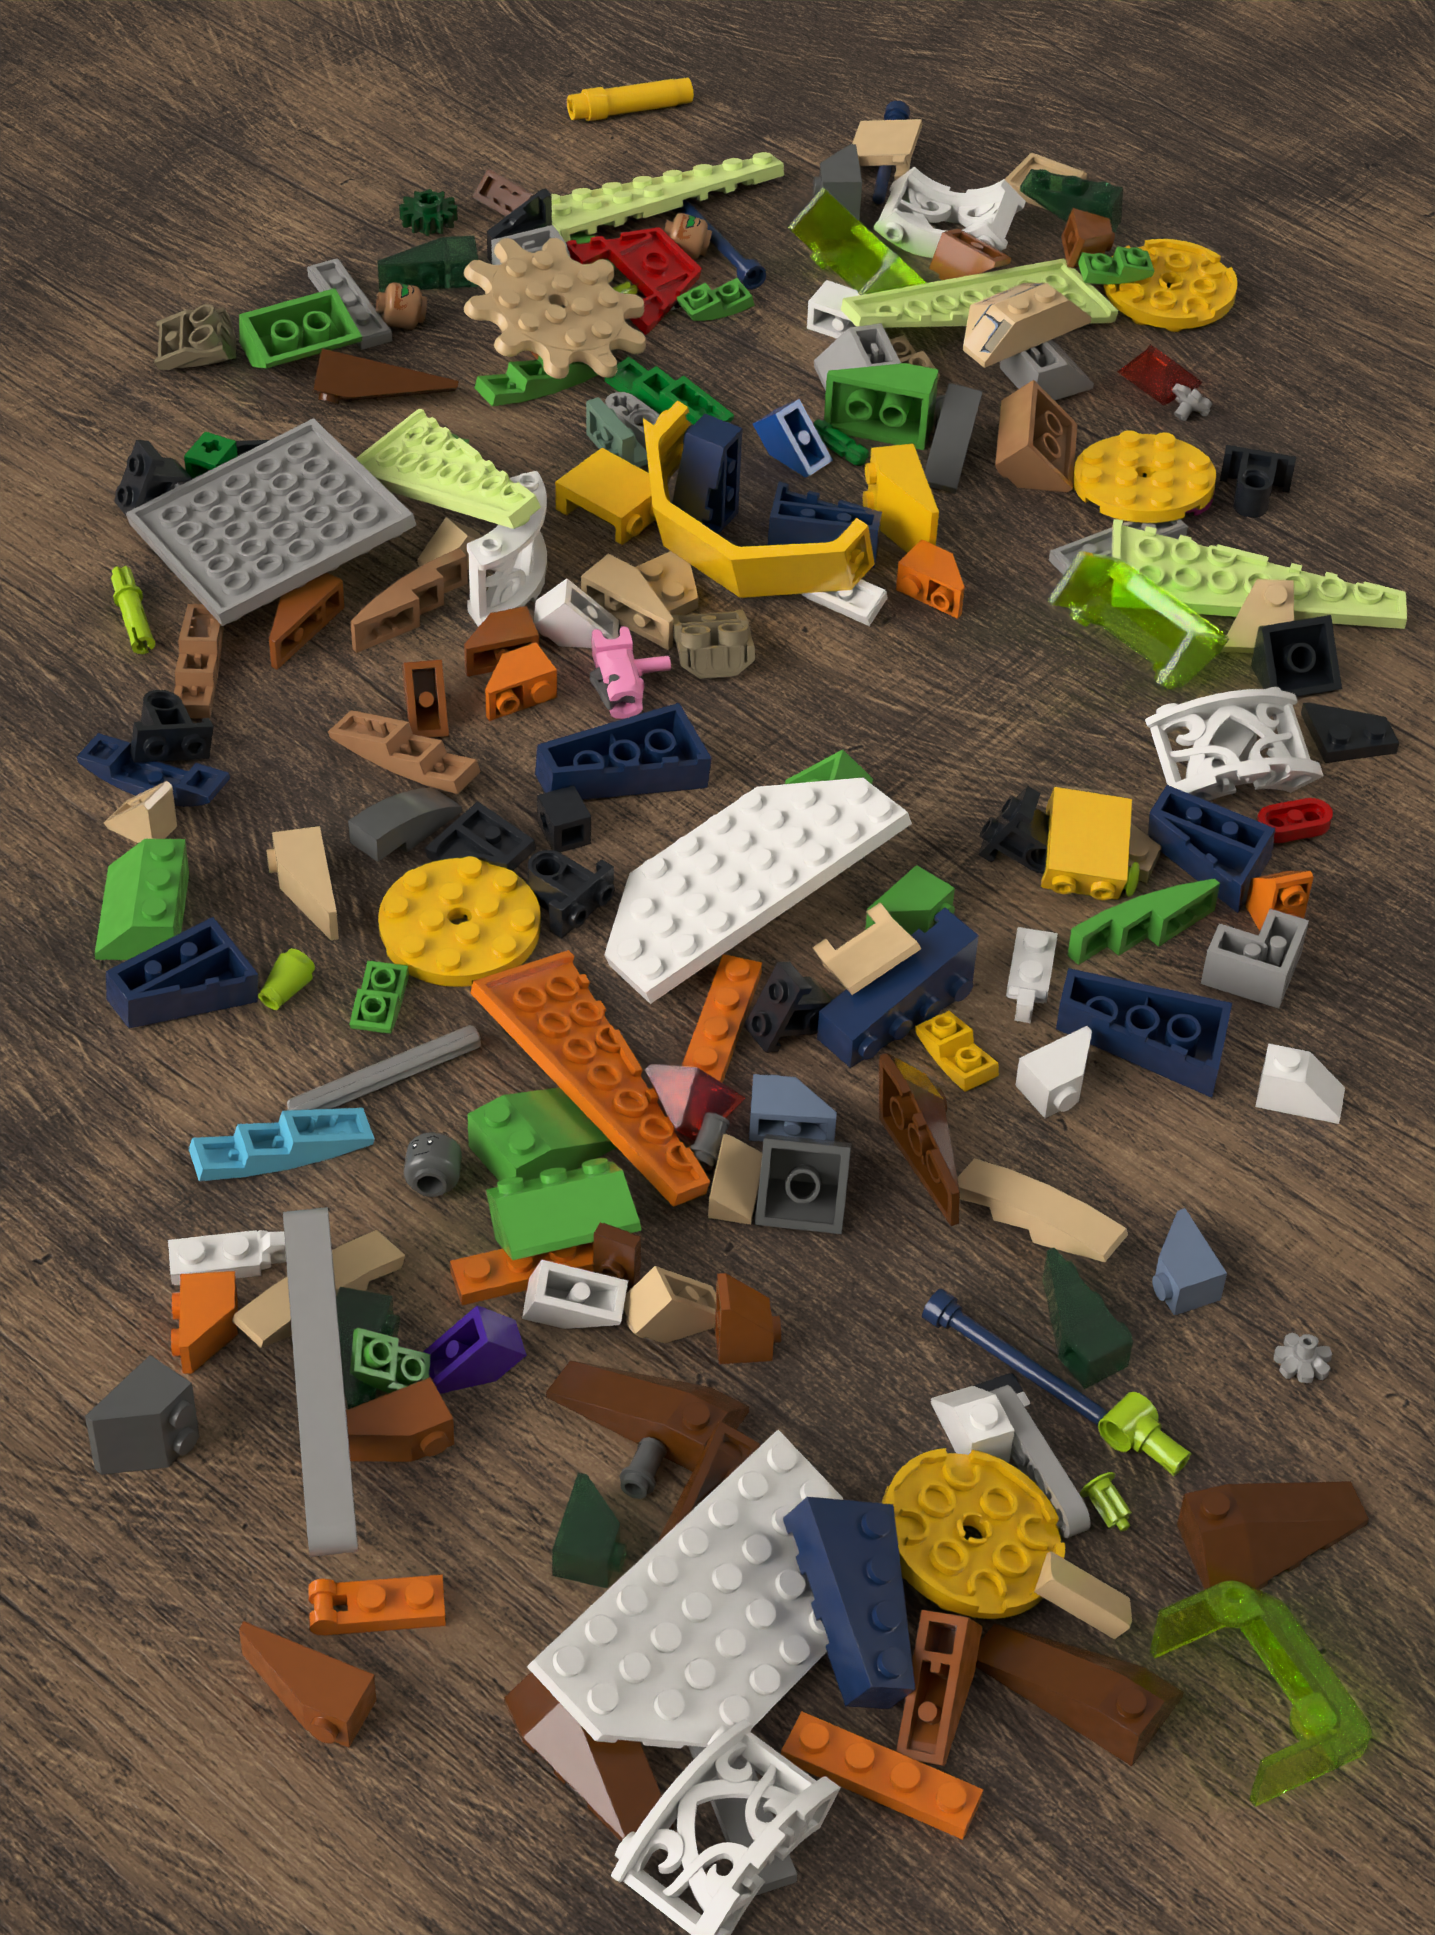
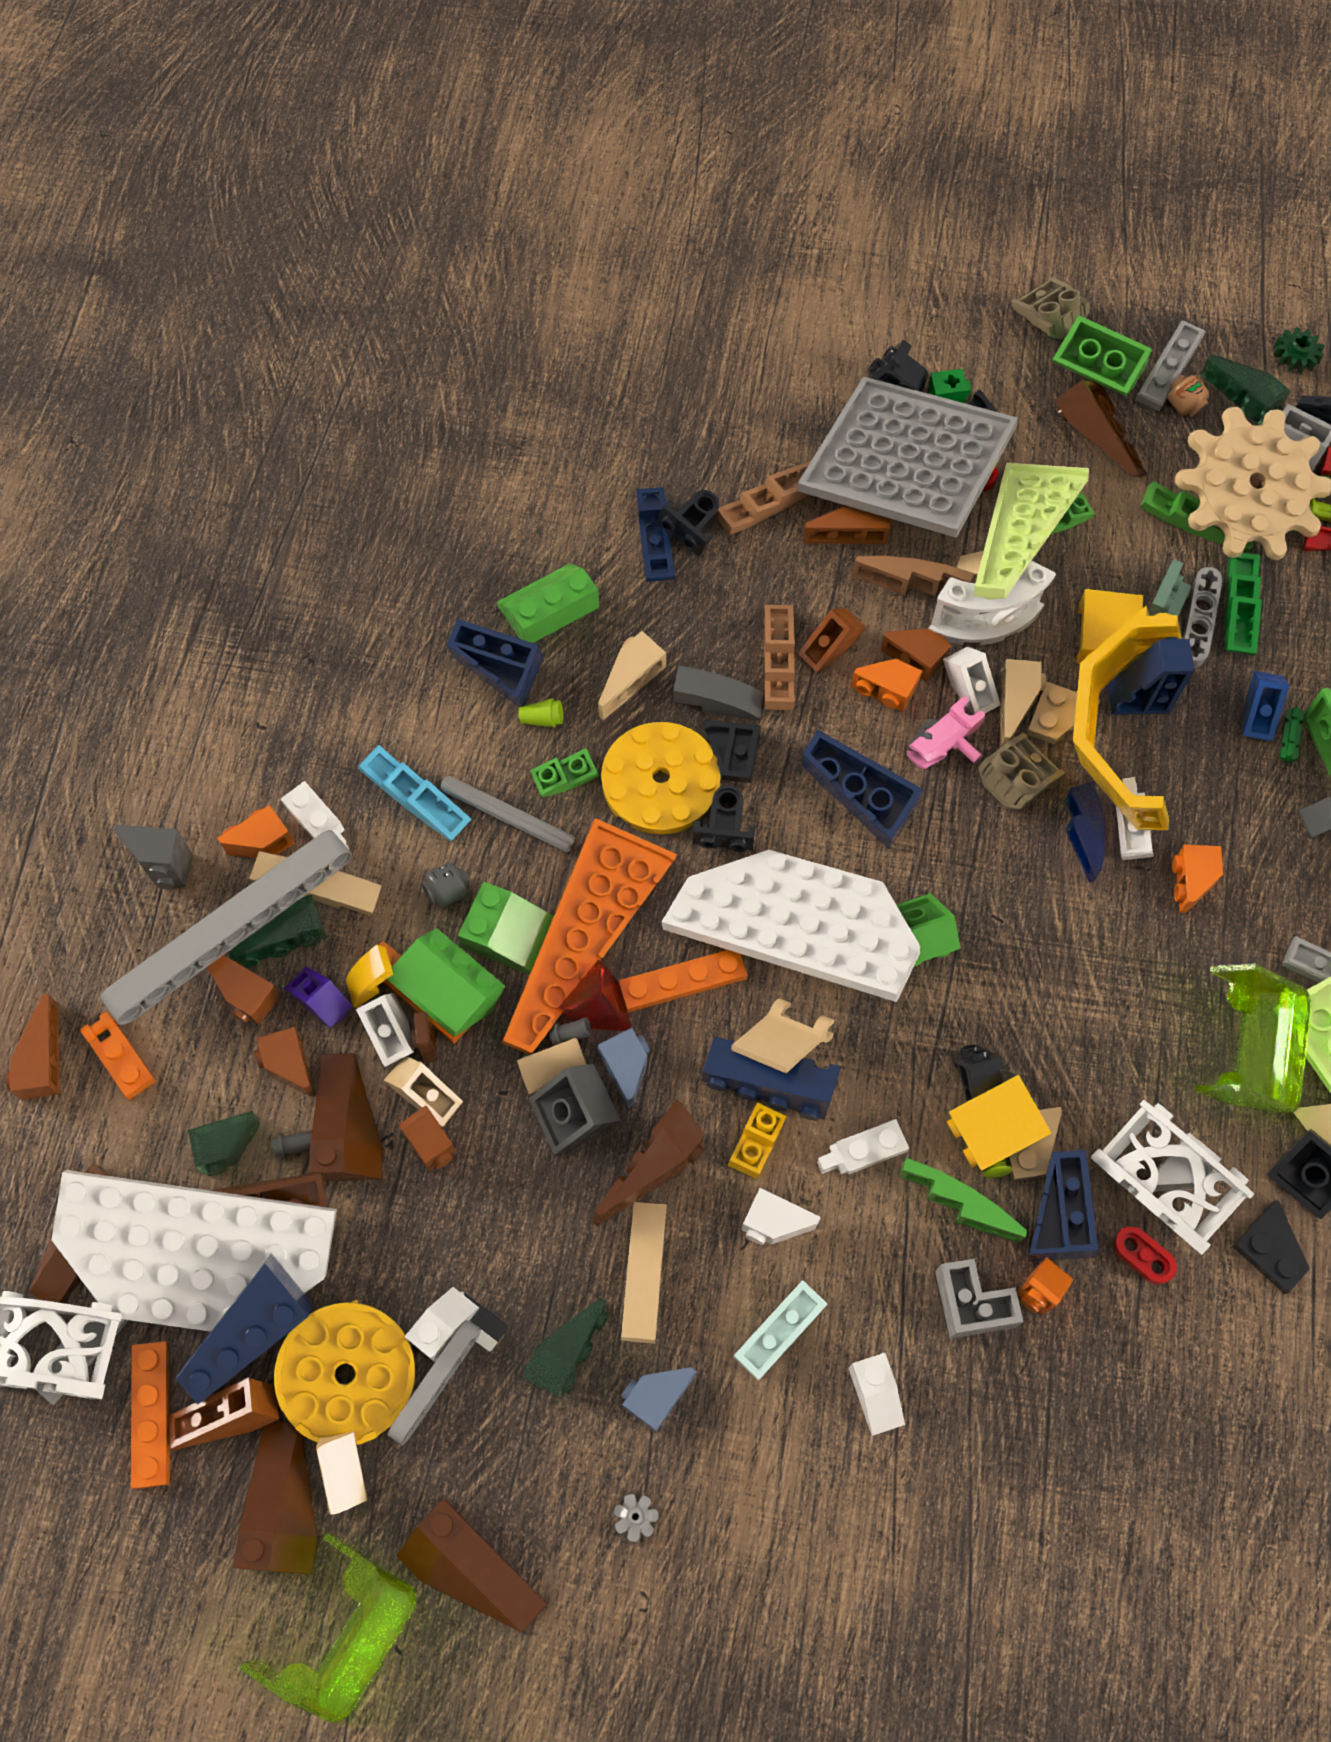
camera: 60 degrees right, 20 degrees up
(129, 600) = (793, 427): lime axle -> none
(146, 815) = (617, 557): tan slope -> none
(384, 1364) = (270, 956): bright green slope -> none
(493, 1274) = (368, 974): none -> yellow slope
(534, 1422) = (285, 1059): none -> dark orange slope
(564, 819) = (785, 783): black brick -> none
(786, 1007) = (712, 1015): black pin -> none
(811, 520) = (1180, 774): dark blue wedge -> none
(820, 626) = (1087, 828): none -> clear blue slope
(902, 495) = (1256, 802): yellow slope -> none
(916, 900) = (863, 1040): bright green slope -> none
(945, 1312) = (524, 1258): dark blue piece -> none
(1107, 1501) = (431, 1446): lime piece -> none
(1136, 1426) = (500, 1432): lime pin -> none
(1149, 1026) = (857, 1270): dark blue wedge -> none
(1181, 1132) = (780, 1330): none -> light aqua plate

